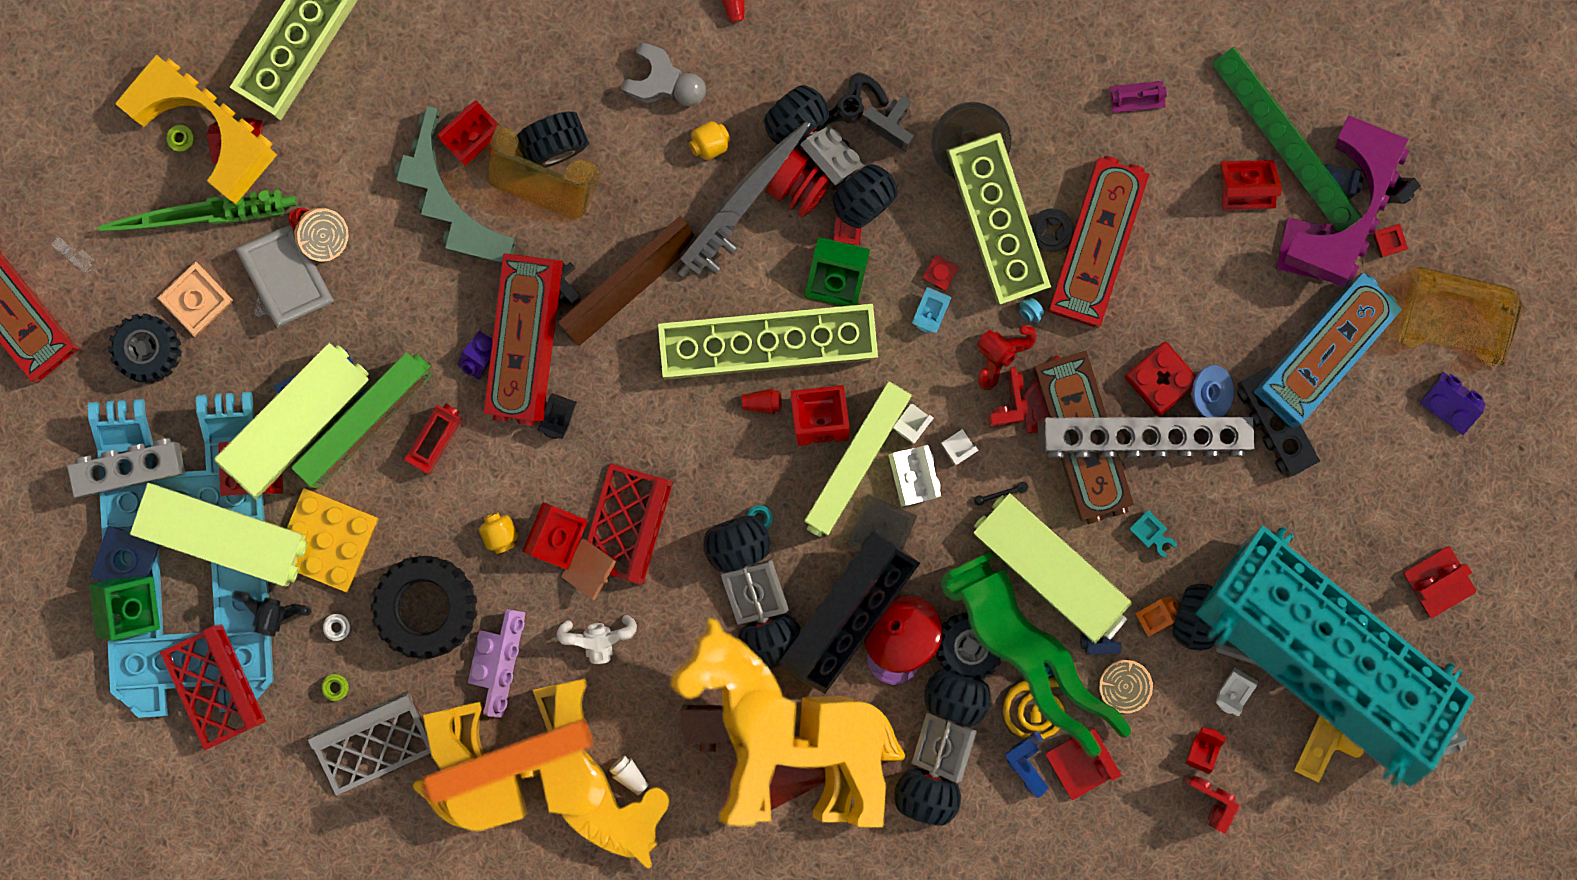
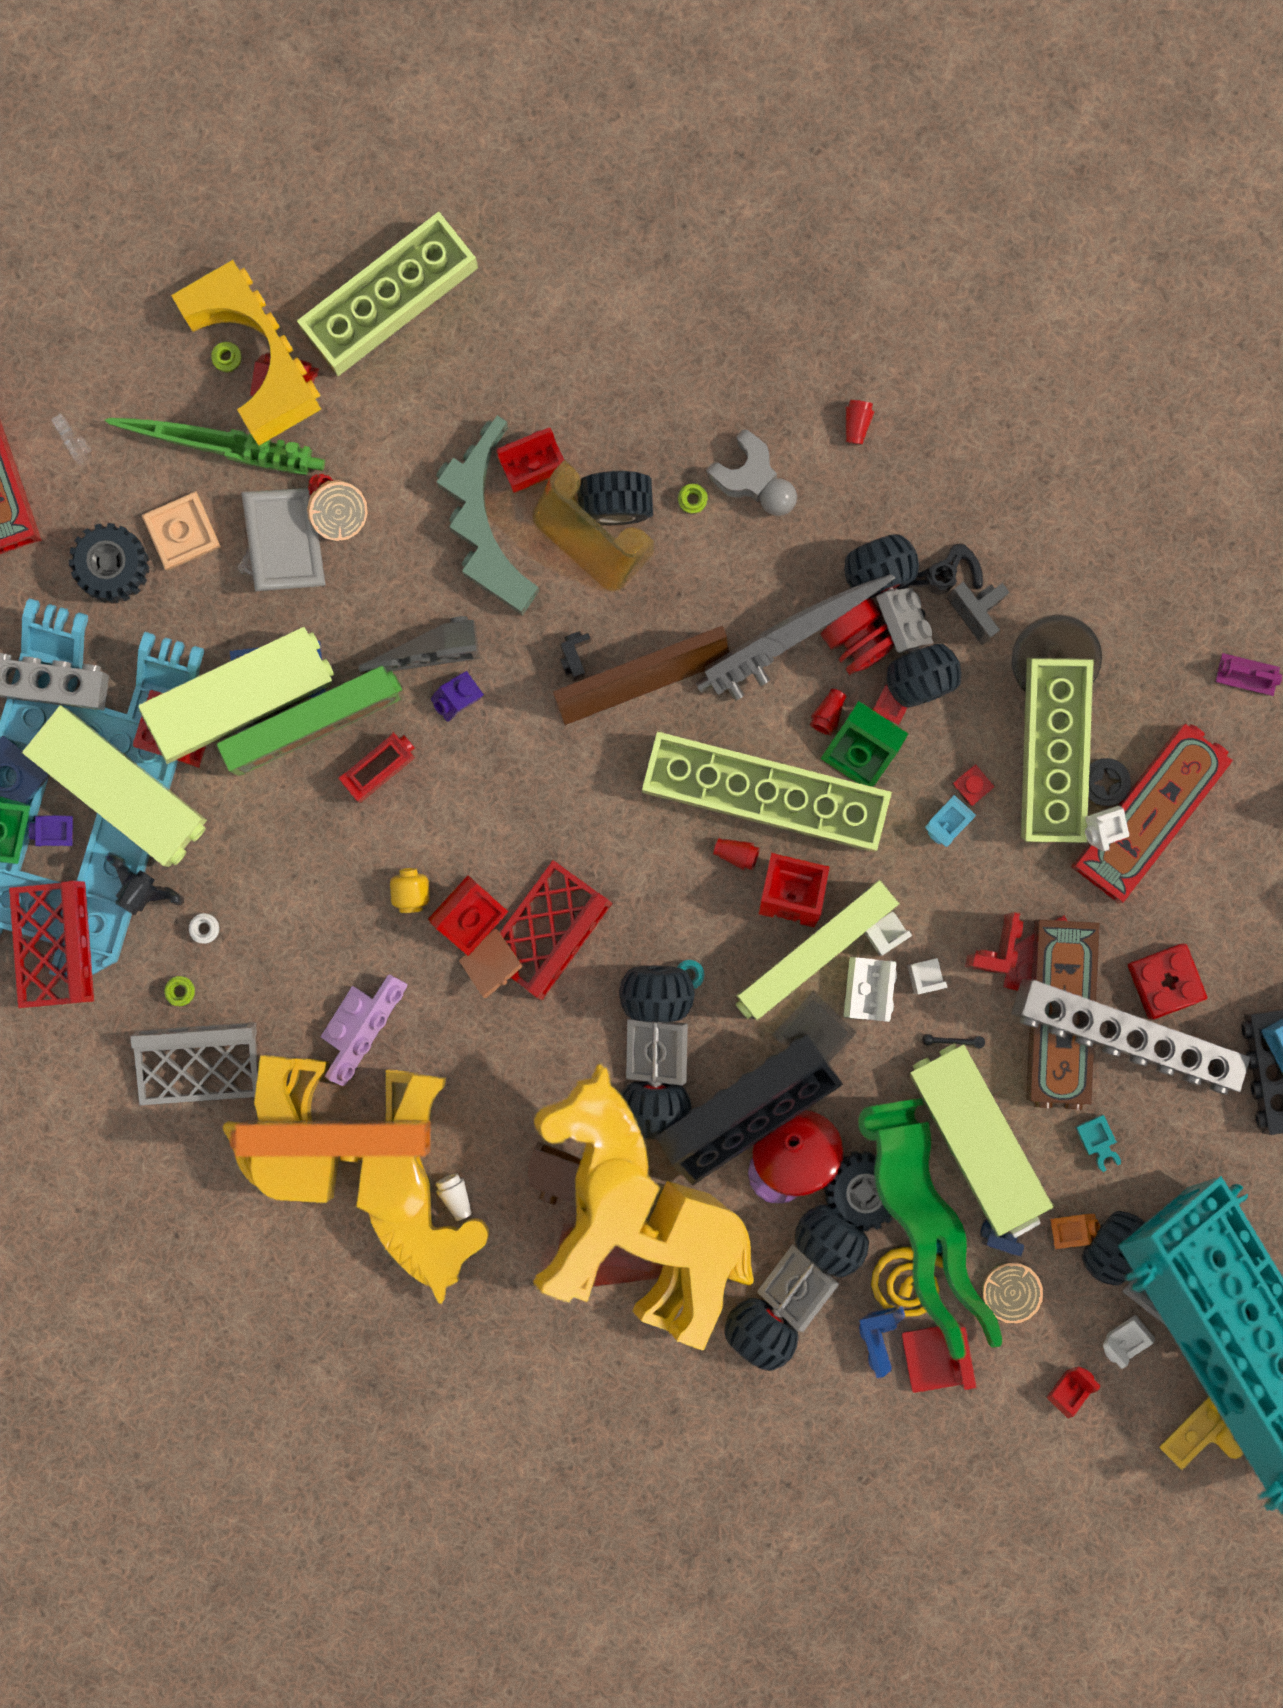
camera: 15 degrees right, 0 degrees up
(178, 591) = (51, 830): none -> dark purple bracket
(335, 538) = (236, 833): yellow plate -> none
(387, 614) = (262, 935): black tyre -> none
(451, 315) = (441, 645): none -> dark grey wedge
(523, 338) = (509, 695): brick -> none
(557, 416) = (515, 791): black bracket -> none
(597, 638) = (473, 1040): white piece -> none
(614, 108) = (694, 489): none -> lime plate
(709, 140) = (780, 558): yellow head -> none
(796, 258) = (828, 713): none -> red cone
(1001, 353) = (1007, 892): red piece -> none
(1031, 310) = (1055, 859): medium azure plate -> none
(1062, 268) = (1106, 827): none -> white bracket
(1213, 391) = (1217, 1014): medium blue dish -> none
(1221, 815) = (1068, 1467): red bracket -> none

